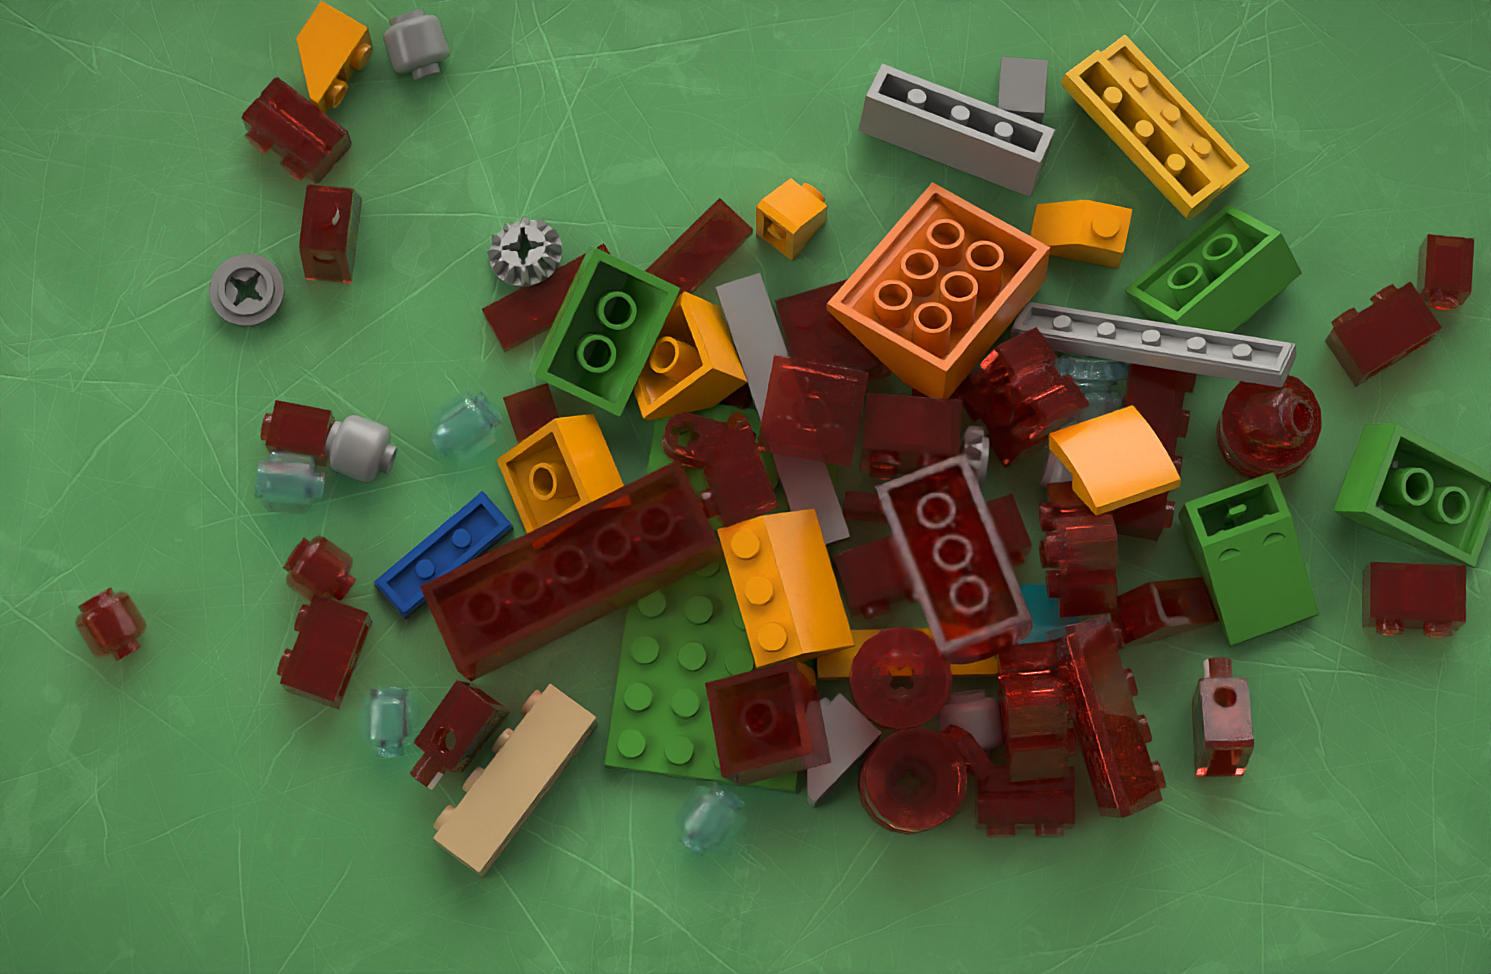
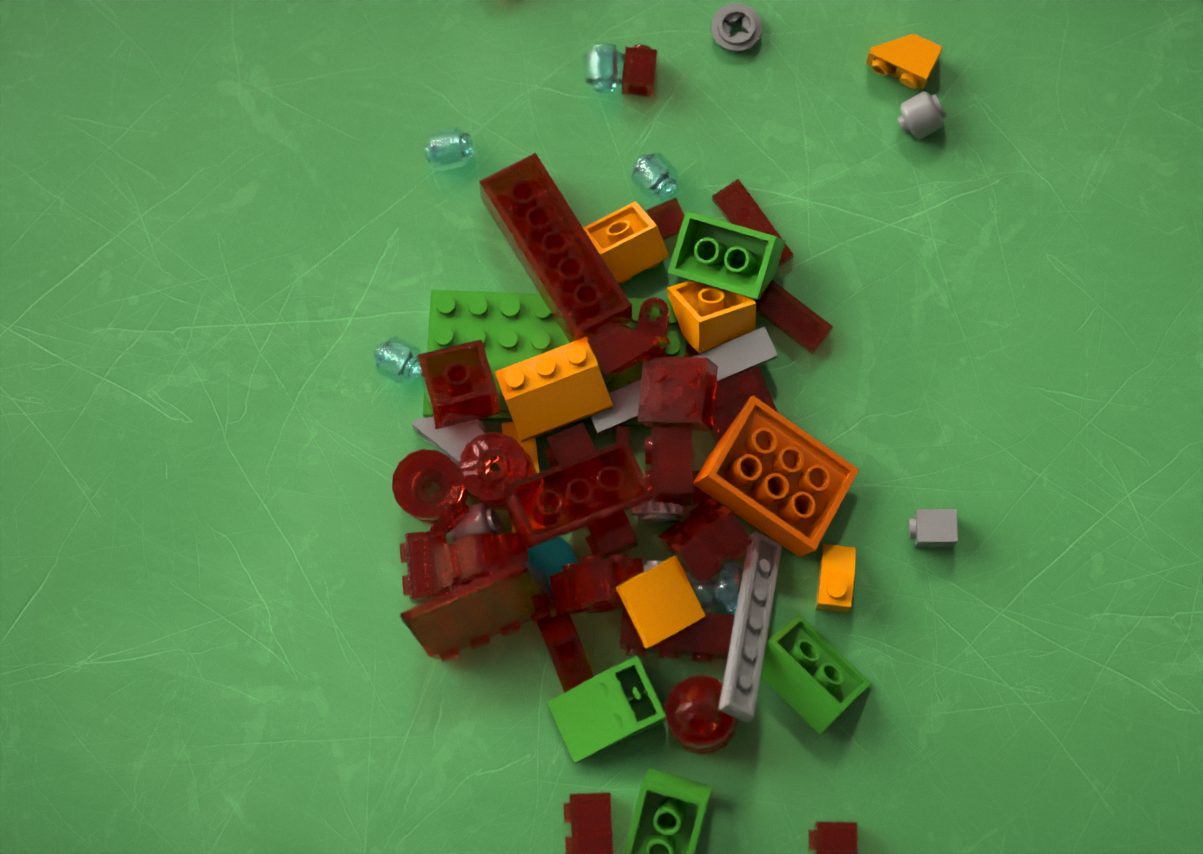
camera: 90 degrees right, 0 degrees up
(295, 131) = (850, 44): clear red brick -> none
(319, 569) = (546, 93): clear red head -> none
(324, 651) = (492, 103): clear red brick -> none
(329, 228) = (780, 72): clear red torso -> none
(360, 448) = (631, 109): light grey head -> none
(451, 545) = (569, 174): blue tile -> none
(472, 719) = (445, 191): clear red torso -> none
(515, 779) = (415, 232): tan brick -> none
(540, 261) = (774, 212): light grey gear -> none
(790, 217) = (824, 375): light orange slope -> none
(956, 130) = (899, 482): light grey brick -> none
(1155, 126) = (919, 623): yellow brick -> none
(1221, 721) = (477, 699): clear red torso -> none
(1382, 332) = (783, 796): clear red brick -> none

